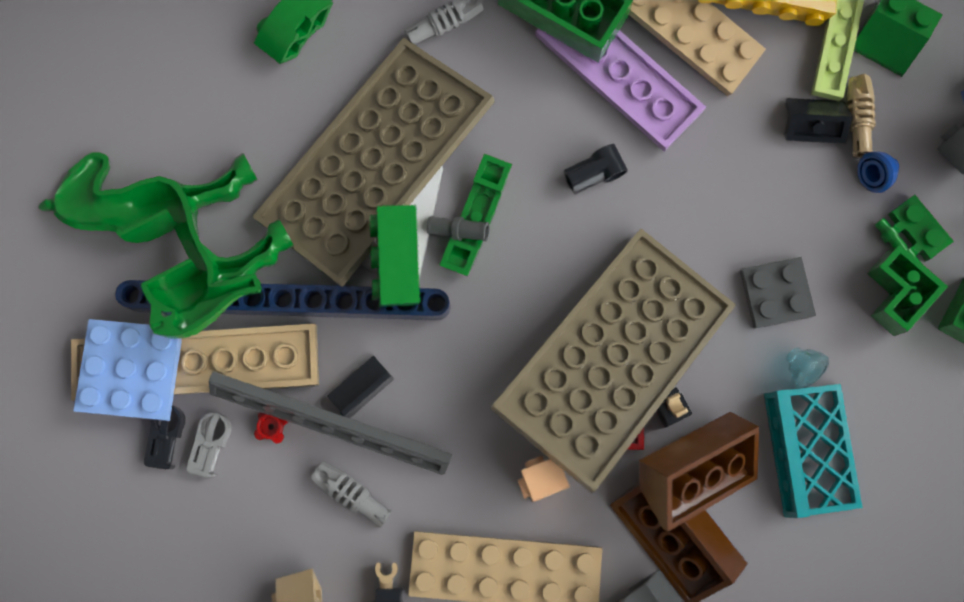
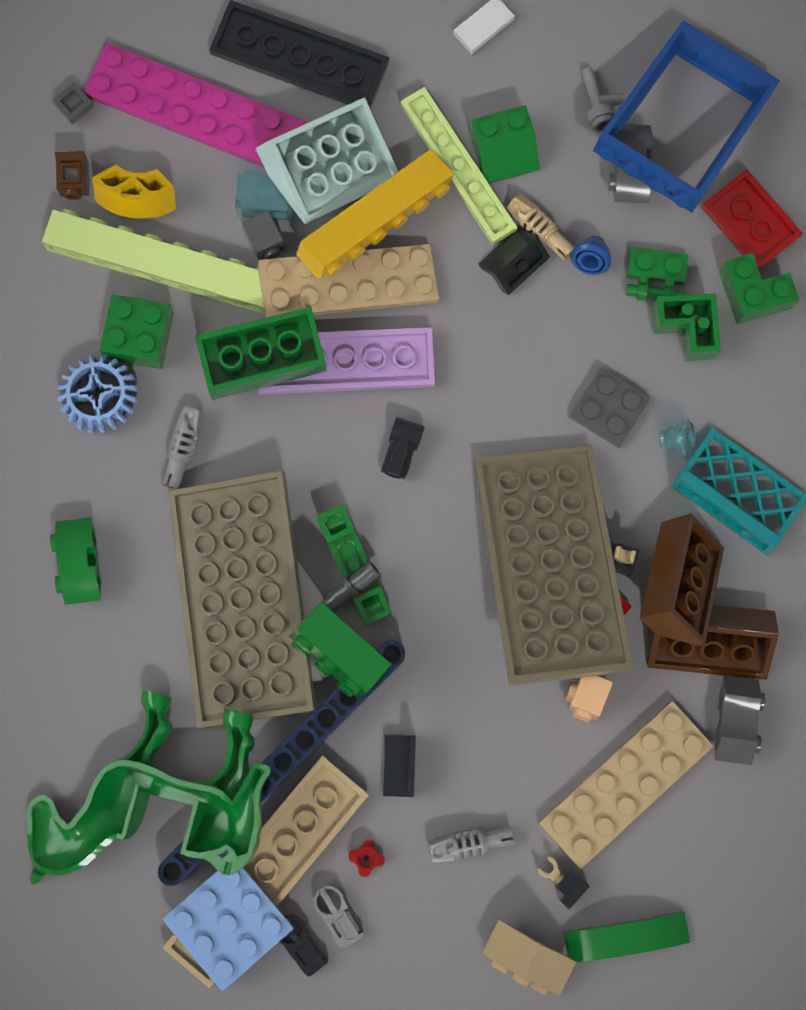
camera: 55 degrees left, 0 degrees up
(329, 423) = (406, 812): dark grey tile -> none

